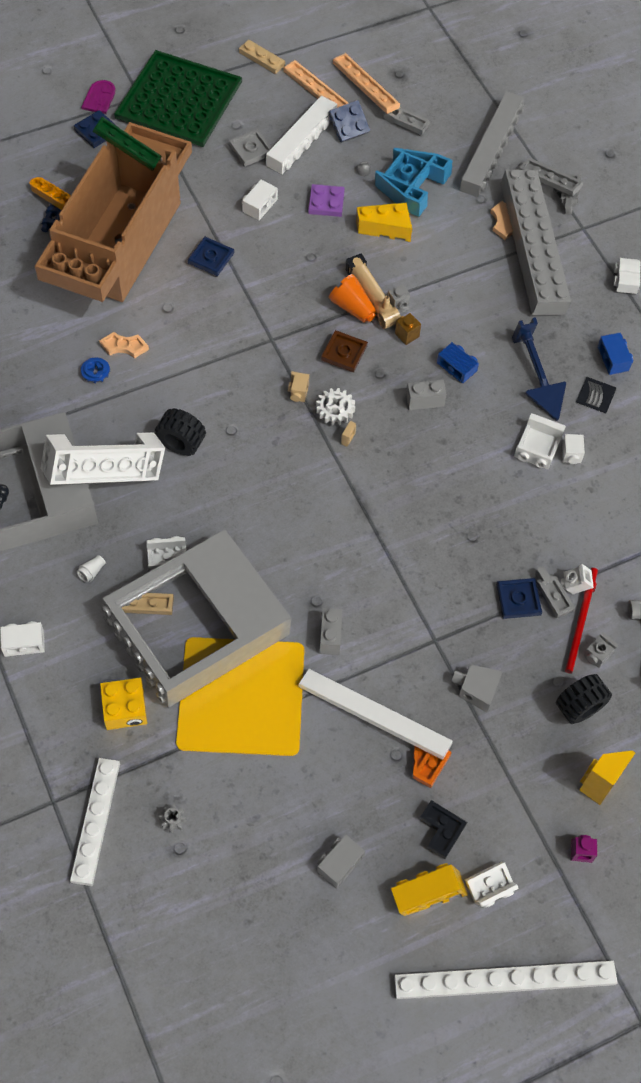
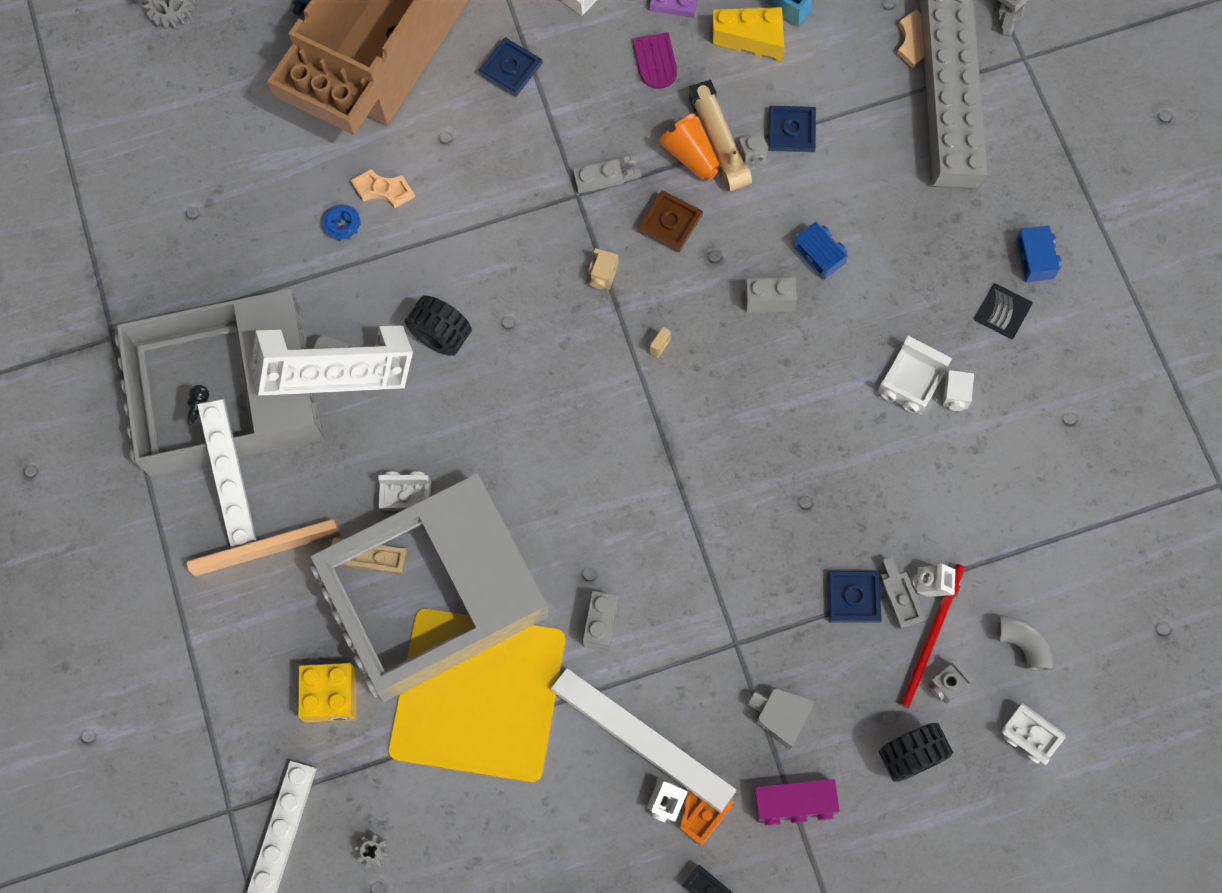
camera: 15 degrees right, 10 degrees up
(22, 639) = (211, 592): white brick -> none
(29, 548) = (227, 472): none -> white plate
(62, 602) = (263, 547): none -> light nougat tile
(90, 569) = (306, 503): white cone -> none
(292, 323) = (606, 174): none -> light grey hinge
(318, 246) = (656, 60): none -> magenta window
(335, 406) = (652, 292): white gear -> none
(405, 753) = (675, 799): none -> white brick
(407, 328) = (759, 195): pearl gold brick -> none
(424, 284) = (792, 129): none -> dark blue tile
(498, 746) = (796, 802): none -> magenta brick
(547, 396) = (938, 308): dark blue piece -> none
(603, 774) = (927, 862): yellow slope -> none
(627, 275) = (1074, 137): white brick -> none

